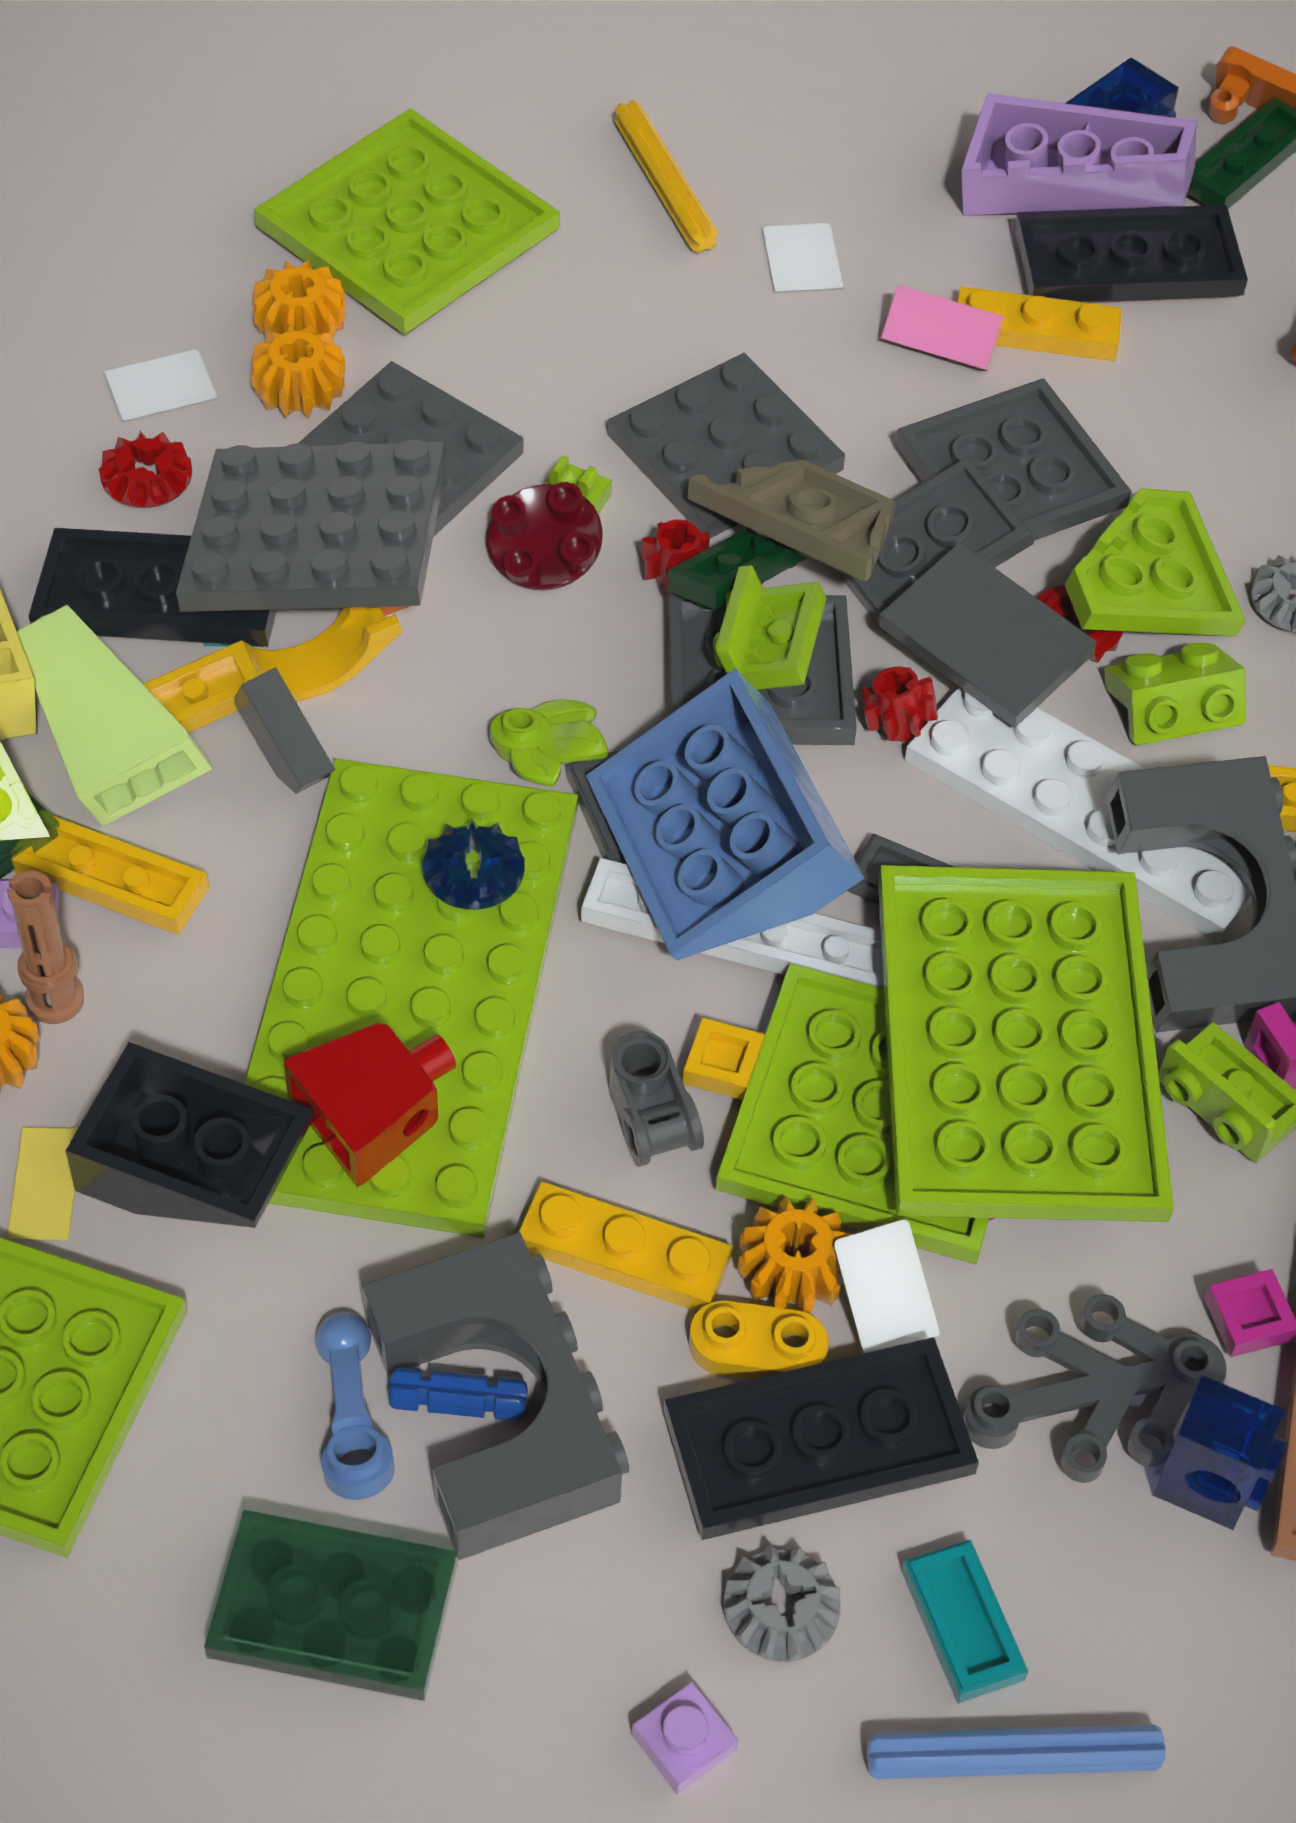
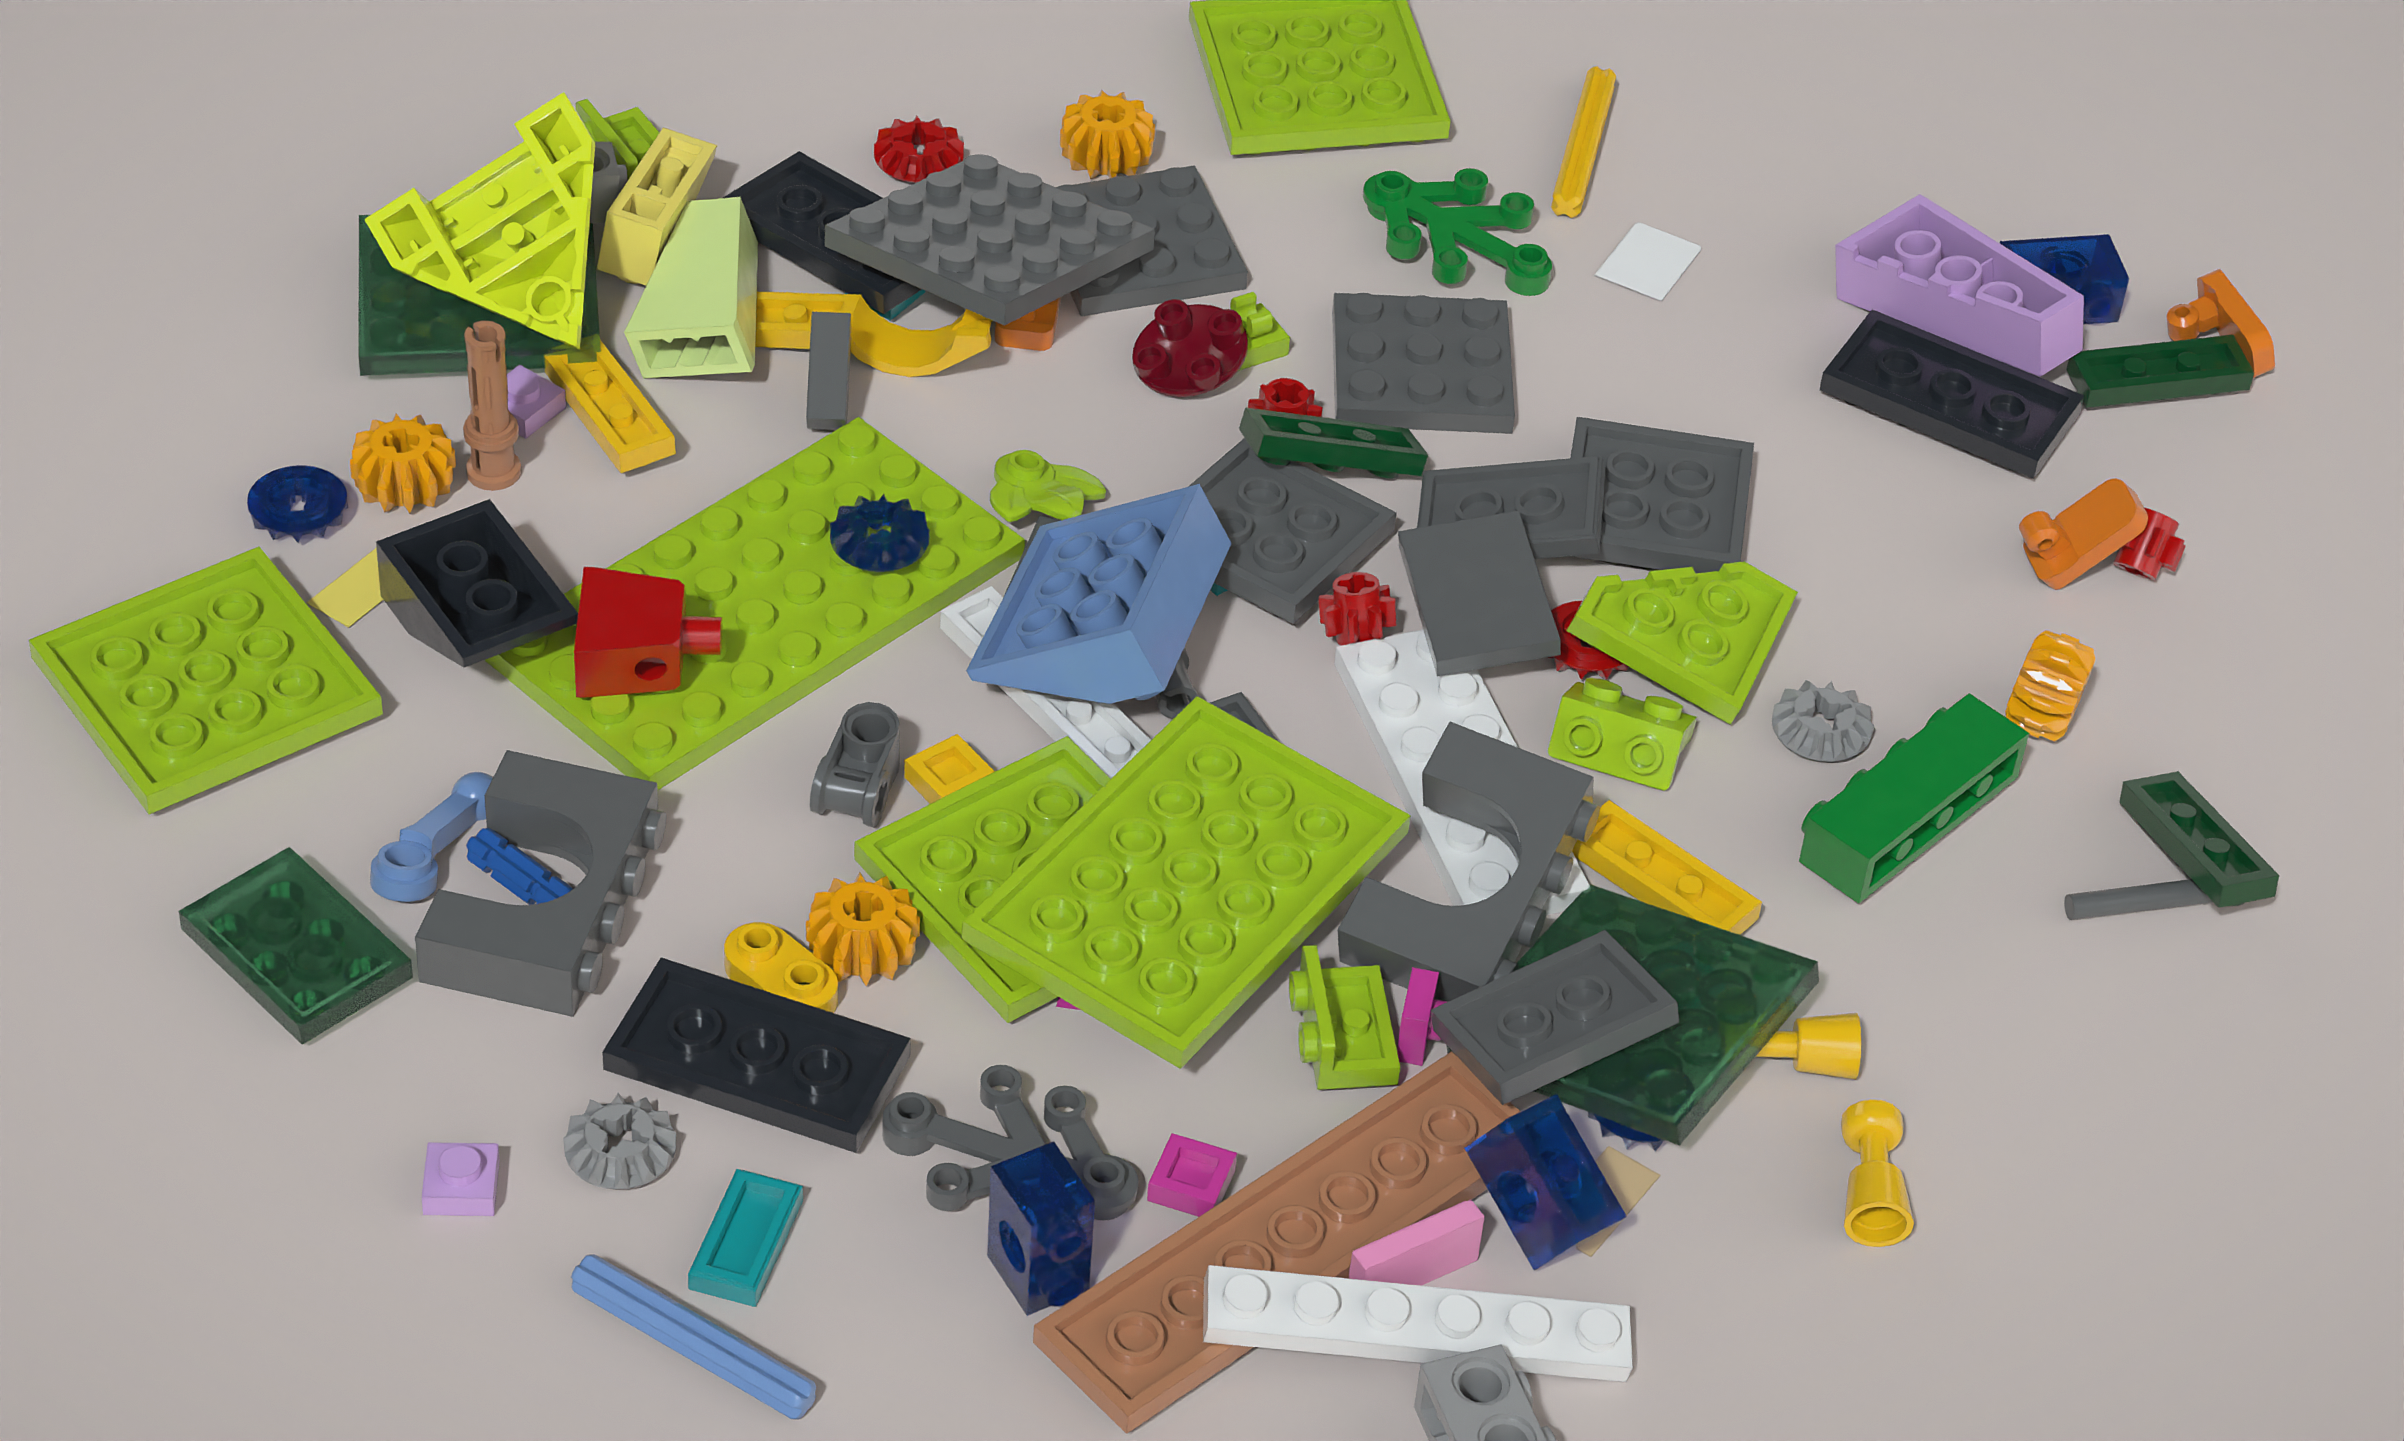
camera: 35 degrees right, 10 degrees down
(160, 384) = (996, 99): white sticker -> none
(299, 299) = (1165, 84): light orange gear -> none
(577, 305) = (1395, 197): none -> green plant
(625, 1247) = (742, 854): yellow plate -> none
(769, 630) = (1280, 489): lime bracket -> none
(805, 510) = (1414, 429): dark tan wing -> none
(886, 1286) = (909, 983): white sticker -> none
(942, 327) = (1706, 365): bright pink tile -> none
(1050, 323) = (1808, 408): yellow plate -> none

